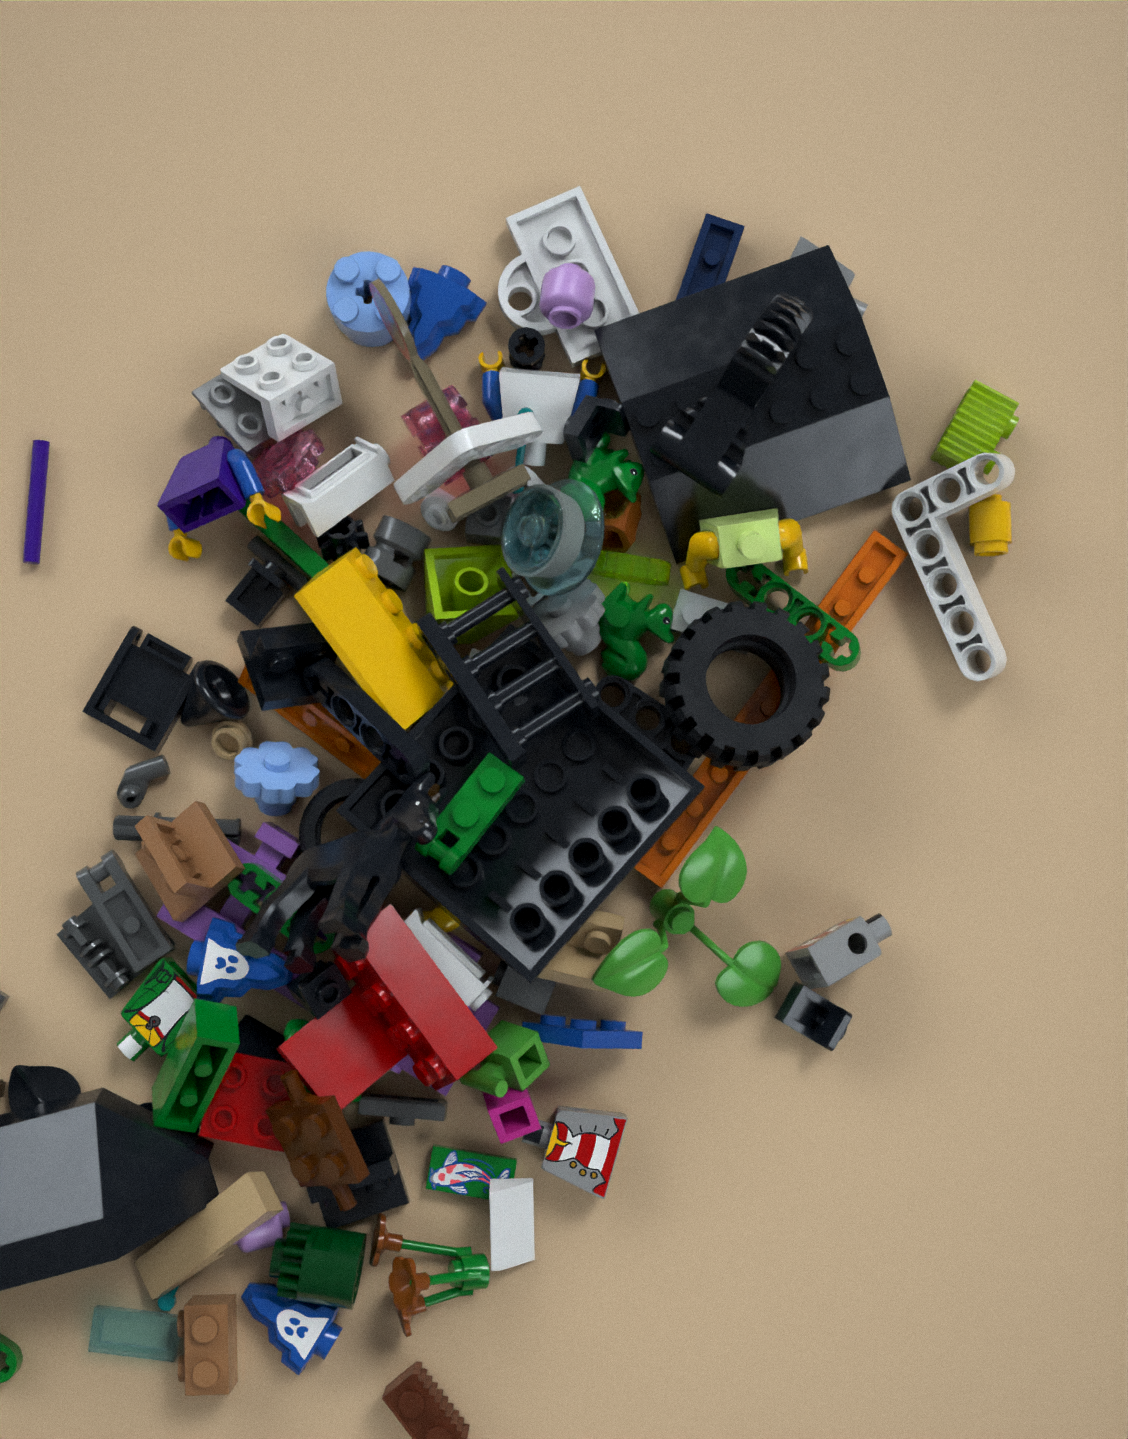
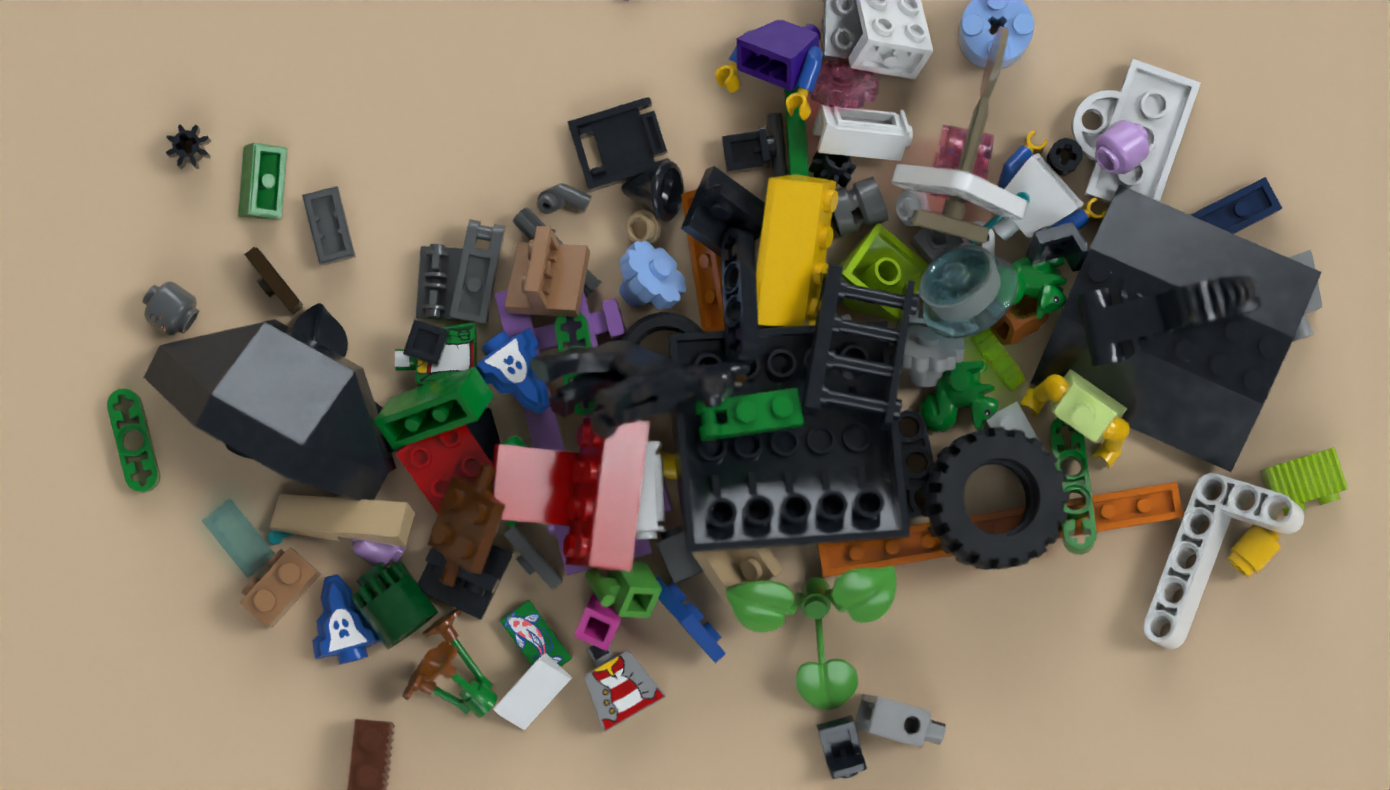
camera: 45 degrees right, 0 degrees up
(136, 1014) = (426, 342): none -> black tile
(320, 989) = (555, 433): black bracket -> none
(440, 306) = (1035, 76): blue rock -> none

